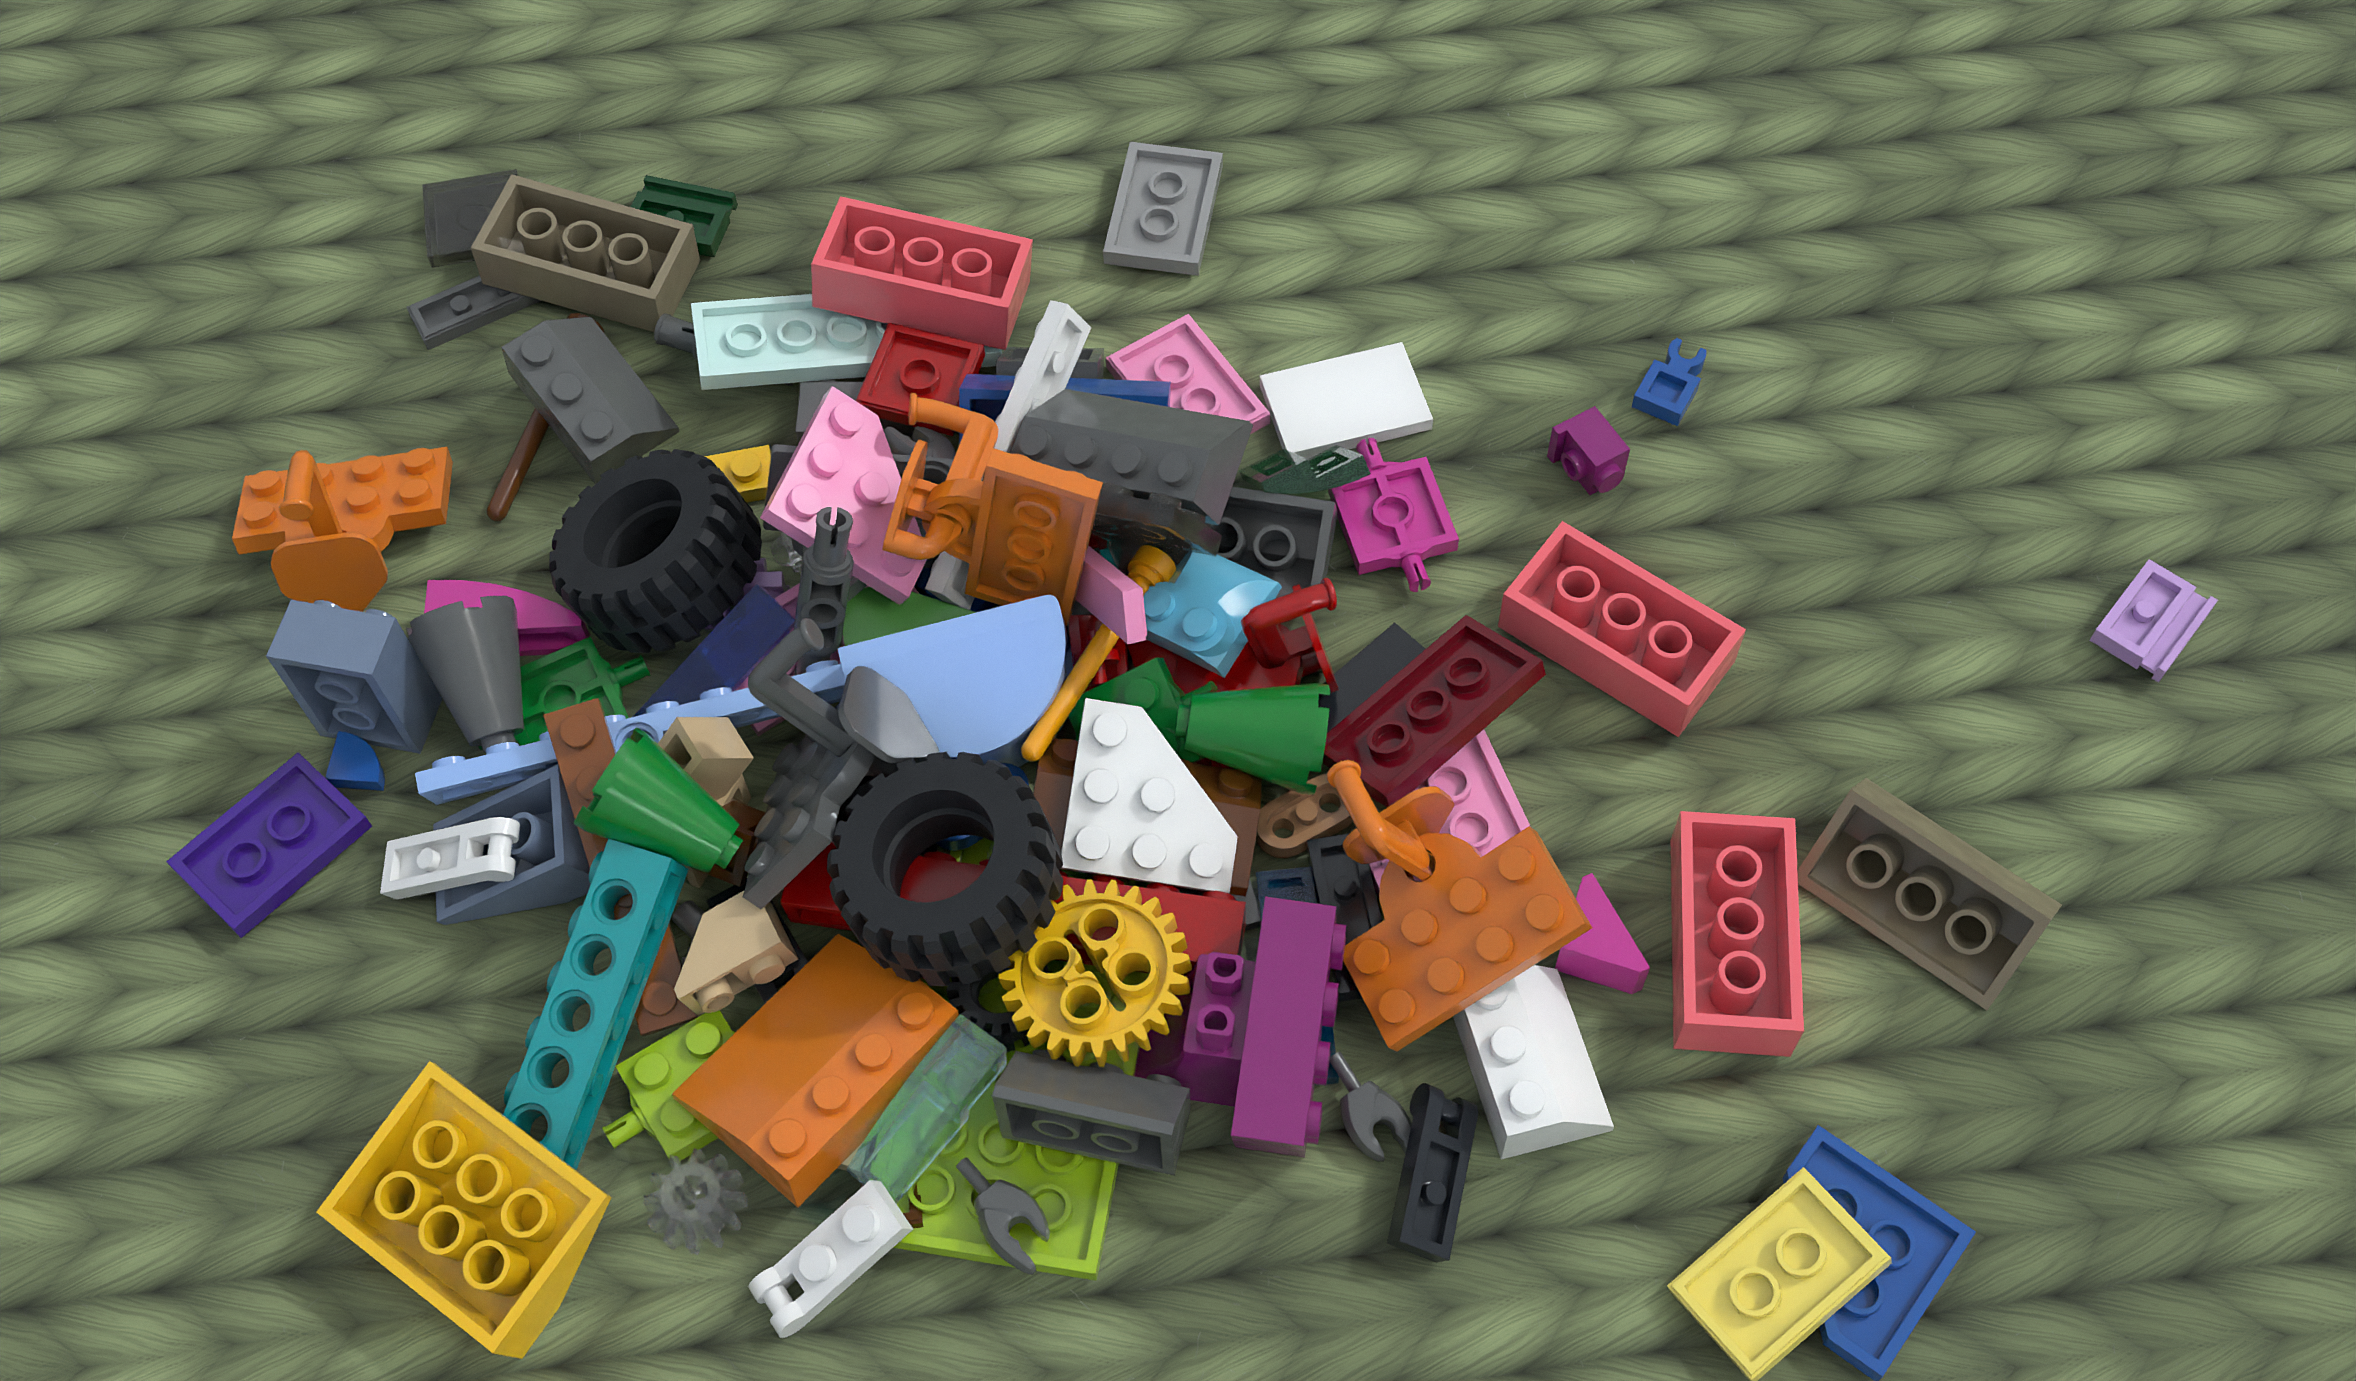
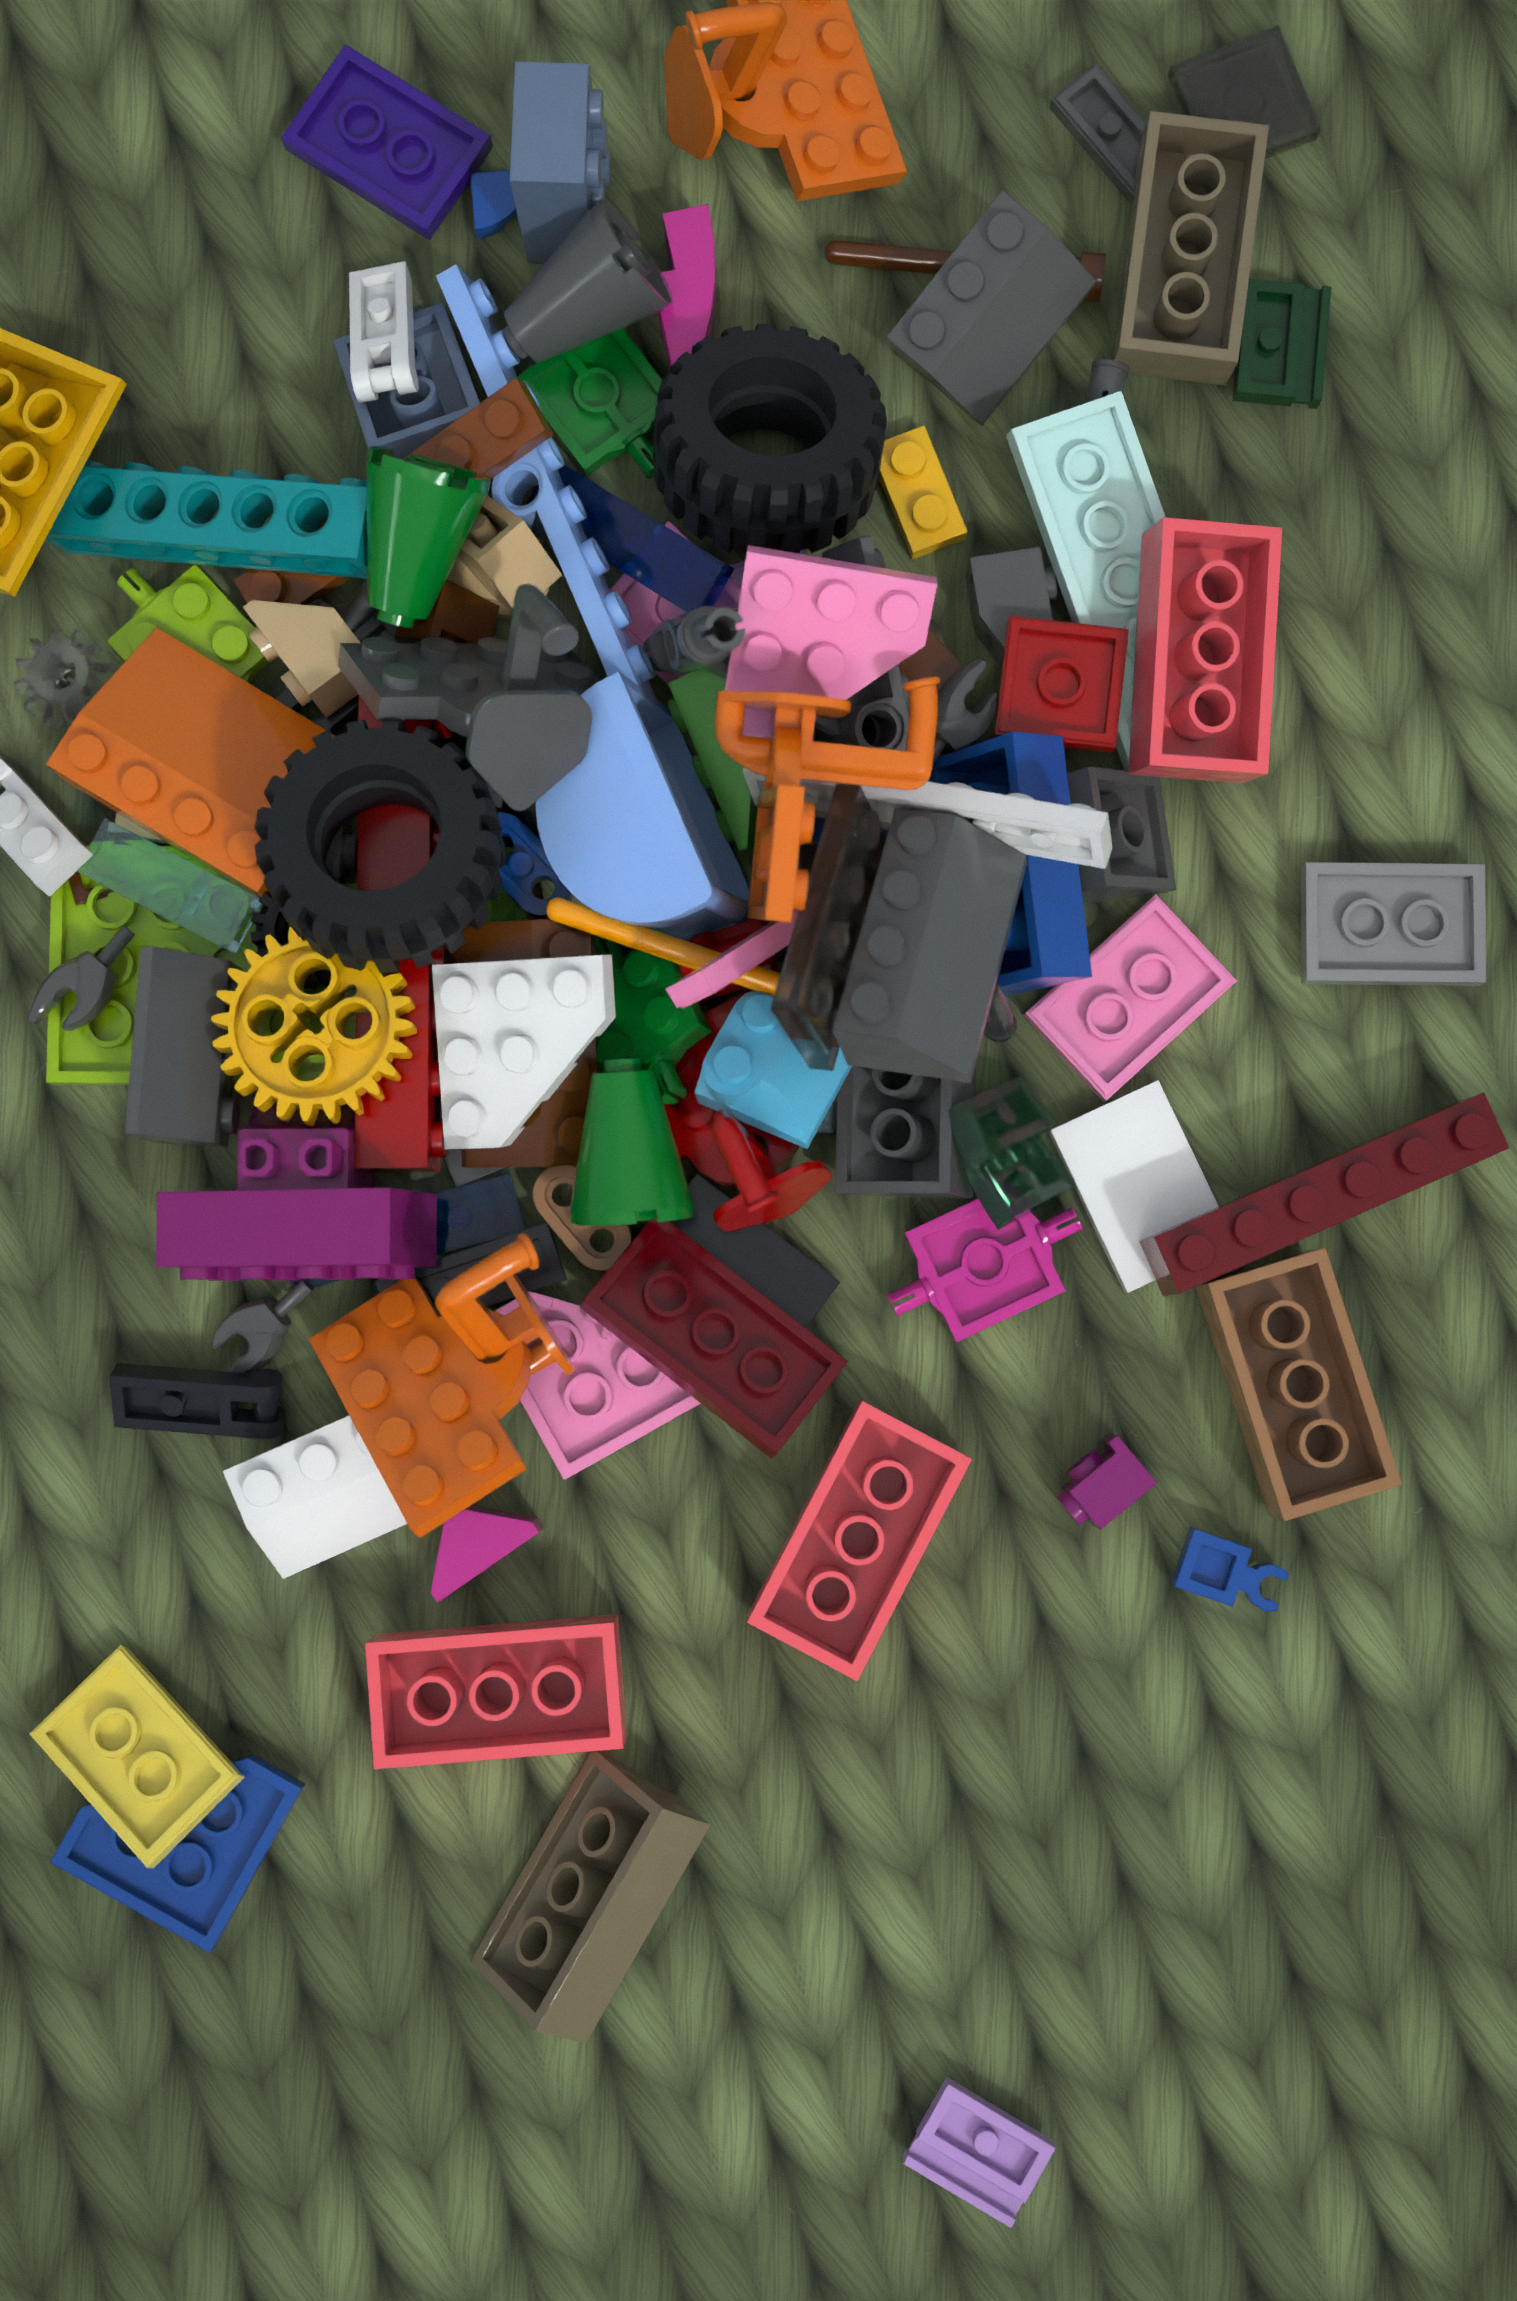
camera: 80 degrees right, 25 degrees up
(1375, 275) = (1323, 1195): none -> dark red brick
(1524, 308) = (1298, 1385): none -> medium nougat brick

